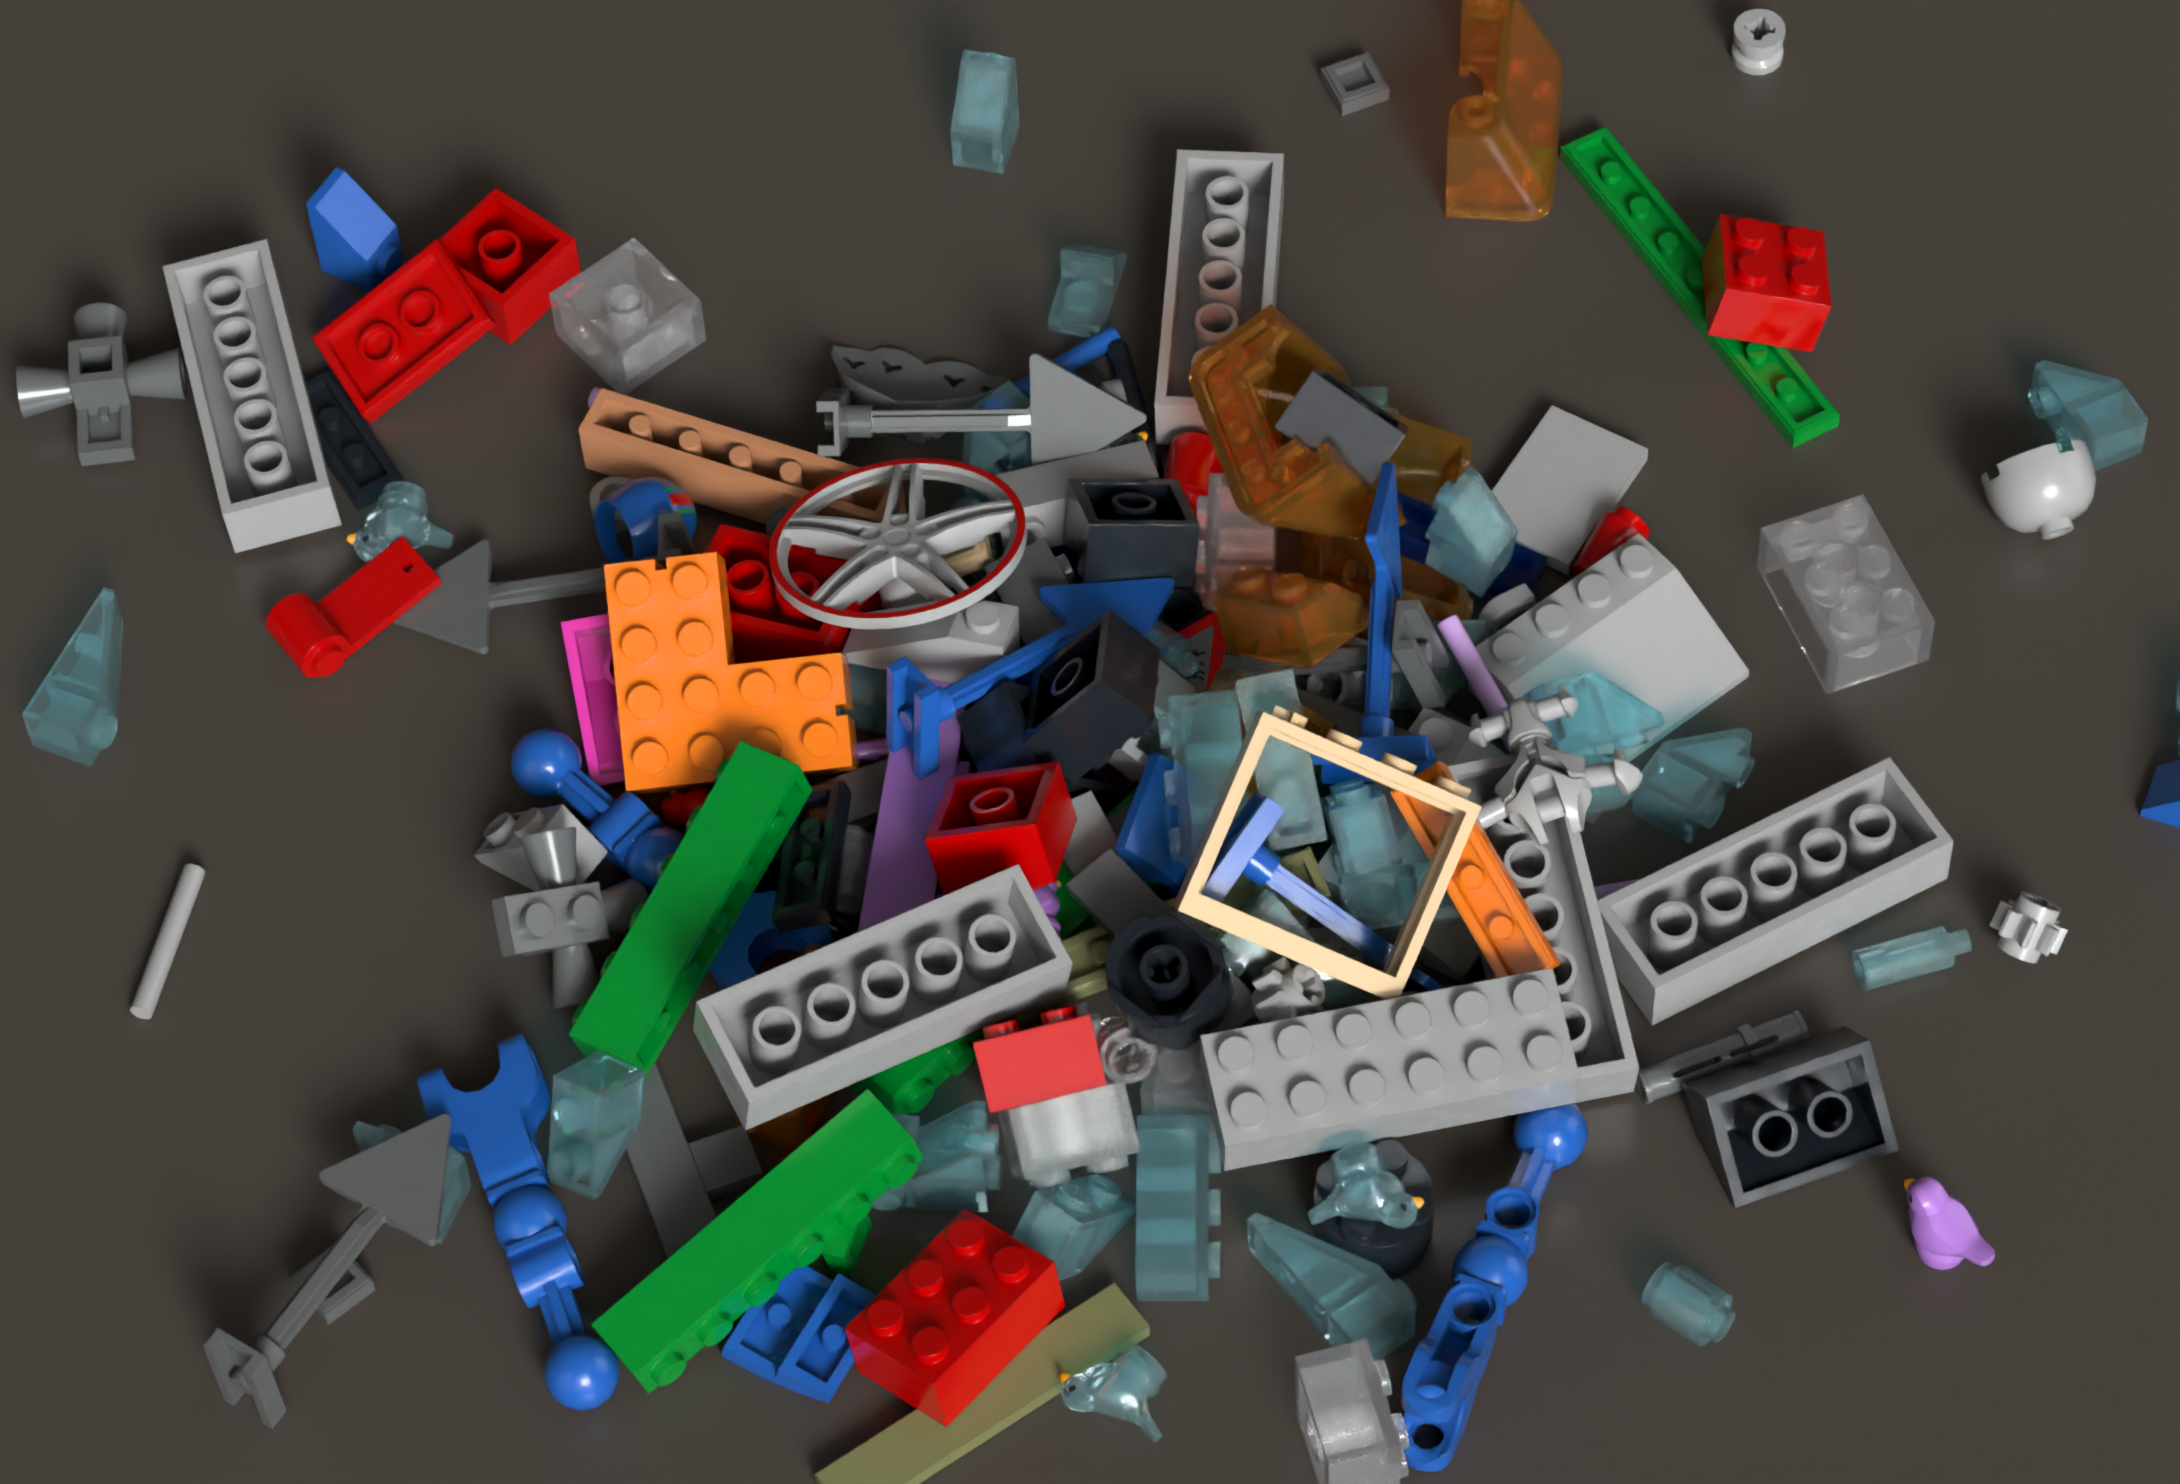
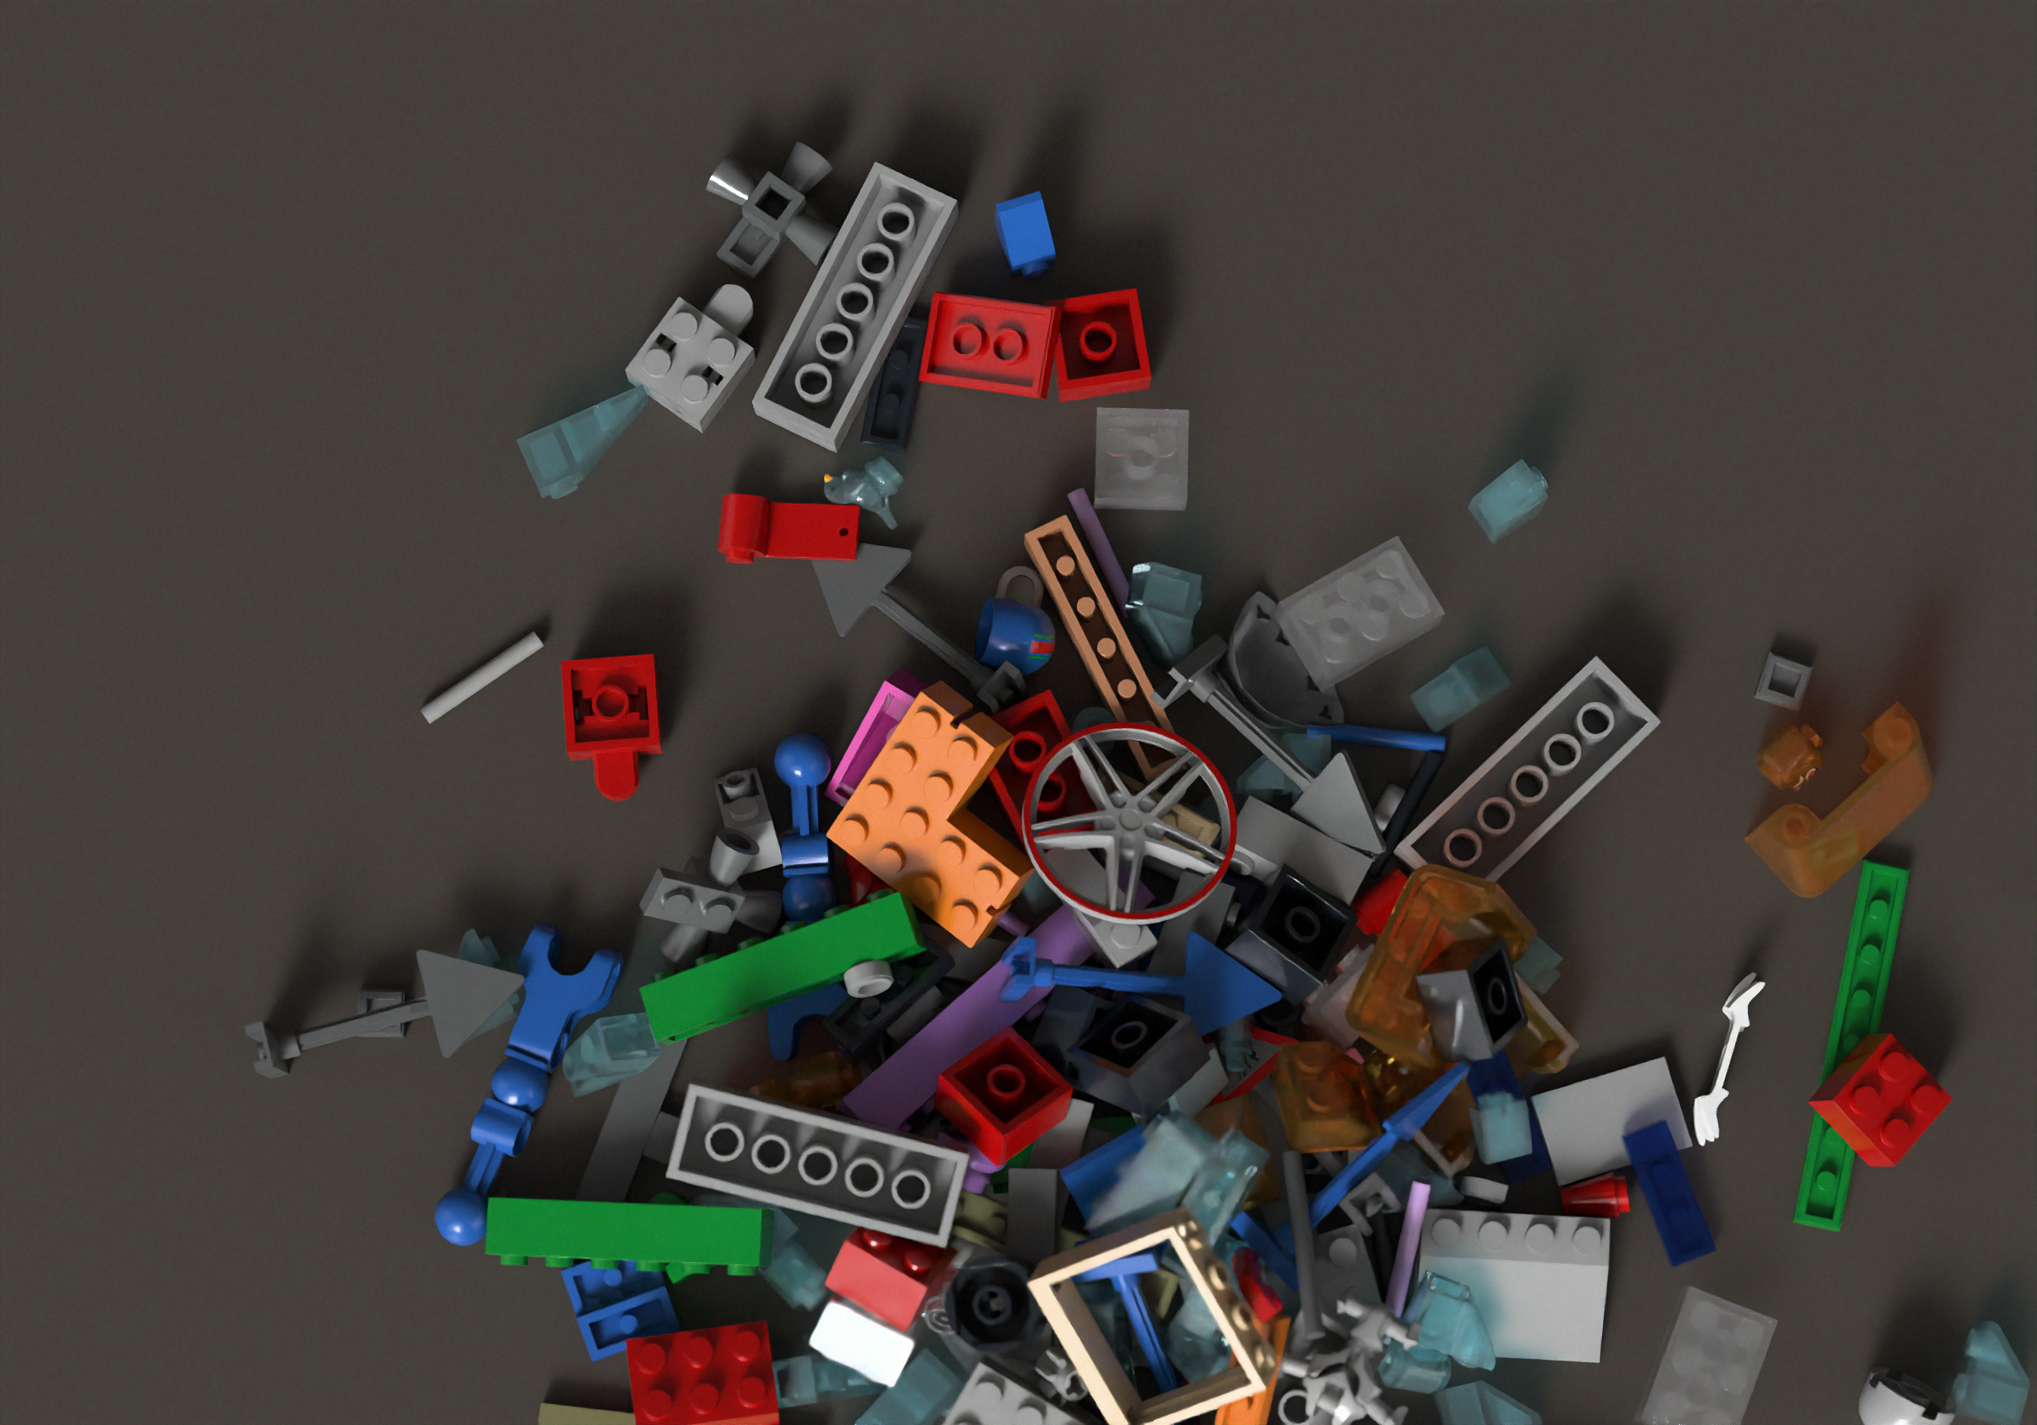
camera: 35 degrees right, 25 degrees up
(136, 539) = (693, 352): none -> light grey brick
(327, 860) = (613, 718): none -> red brick
(763, 402) = (1163, 610): none -> clear light blue slope
(780, 841) = (868, 979): none -> light grey tile
(939, 286) = (1359, 613): none -> clear brick
(1395, 711) = (1303, 1244): none -> dark grey bar
(1409, 748) = (1248, 1275): none -> red piece
(1417, 120) = (1790, 756): none -> clear orange head
(1578, 330) = (1737, 1011): none -> white piece
(1666, 496) = (1668, 1193): none -> clear blue tile

